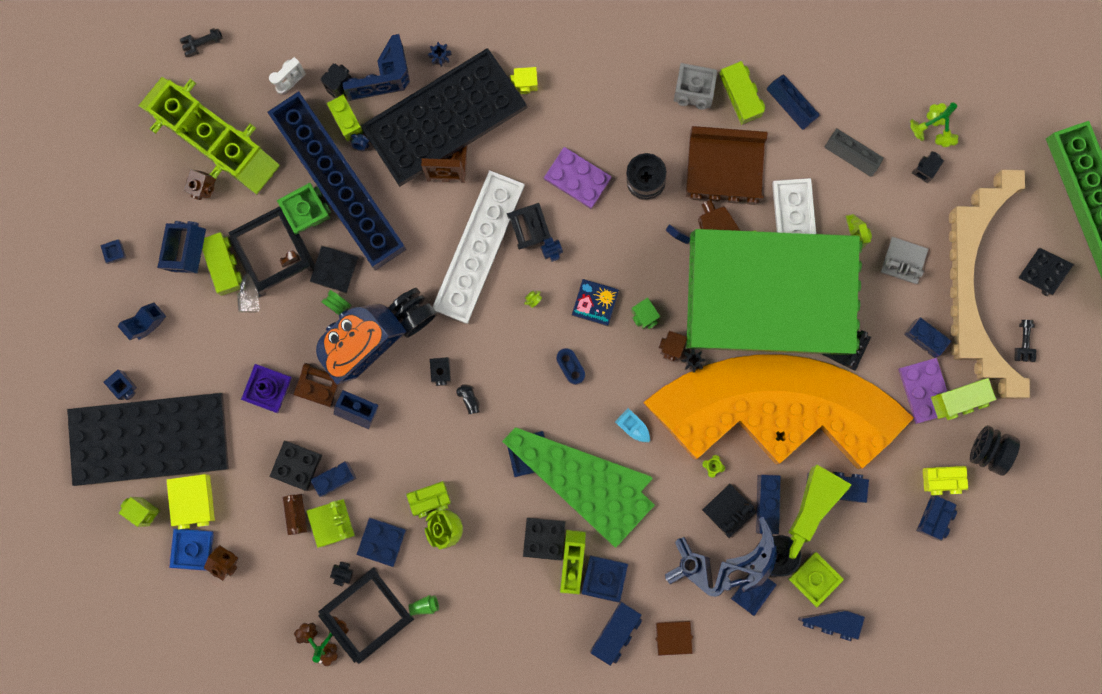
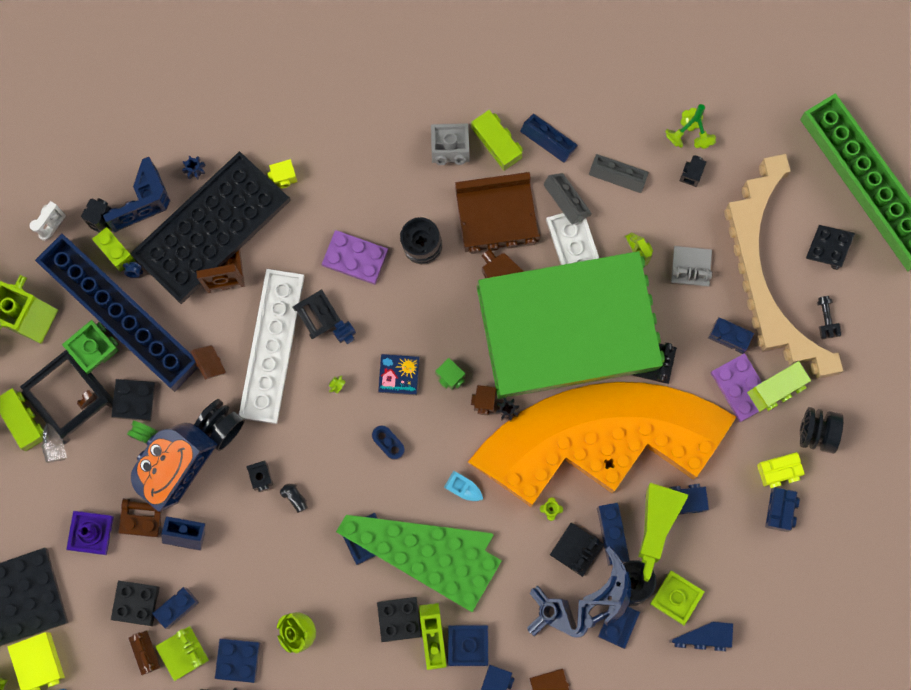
camera: 10 degrees left, 5 degrees down
(414, 249) = (208, 362): none -> reddish brown piece
(428, 499) = (275, 606): lime brick -> none
(677, 234) = (465, 290): dark blue tile -> none
(797, 166) = (566, 198): none -> dark grey slope

